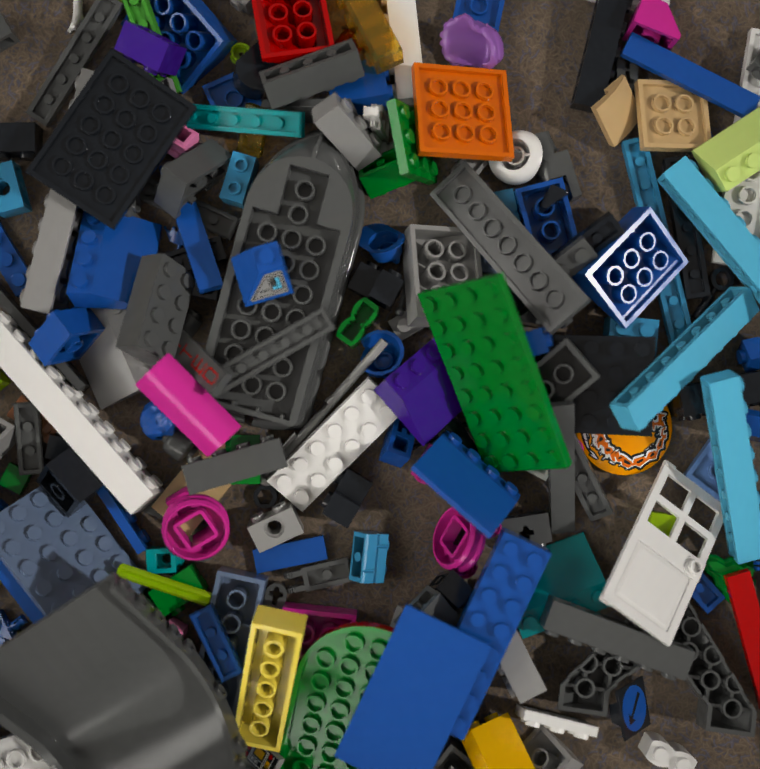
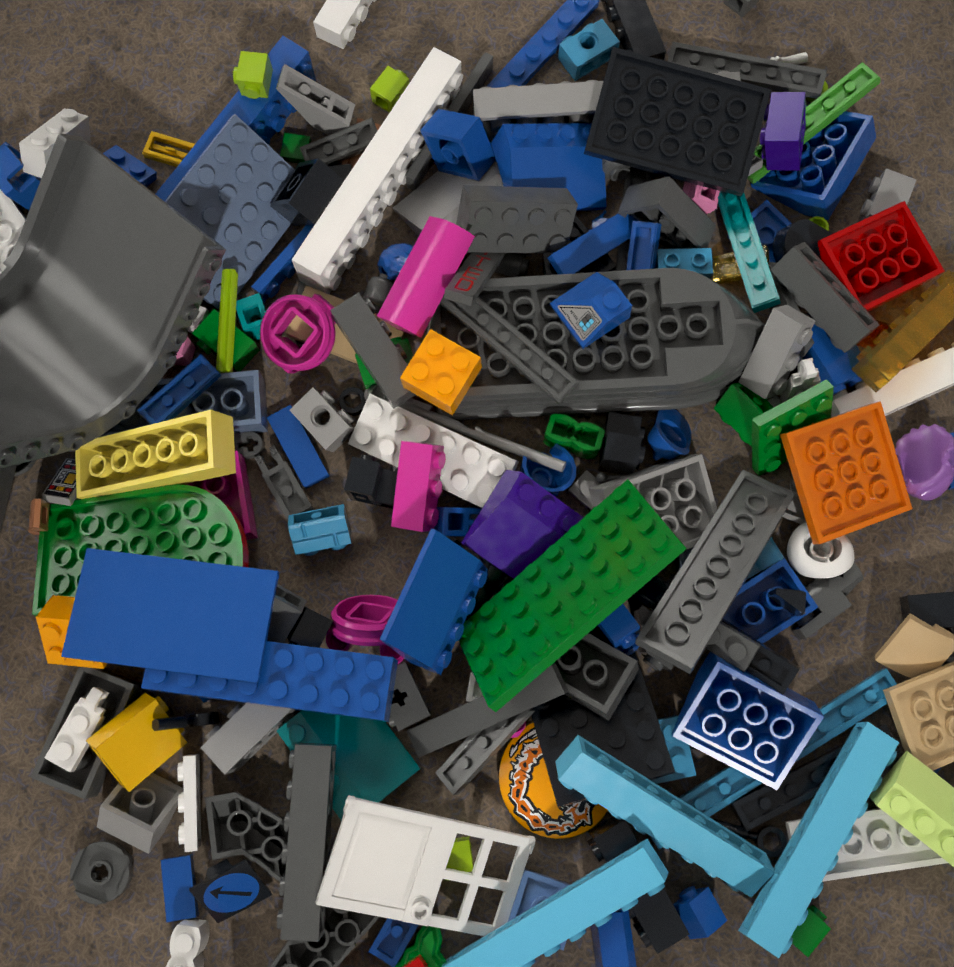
camera: 75 degrees right, 10 degrees down
(215, 208) = (643, 245): none -> blue tile
(277, 418) = (441, 372): none -> light orange brick
(362, 465) = (418, 486): none -> dark pink brick
(491, 700) = (182, 721): none -> black piece
(613, 747) = (177, 878): none -> blue tile

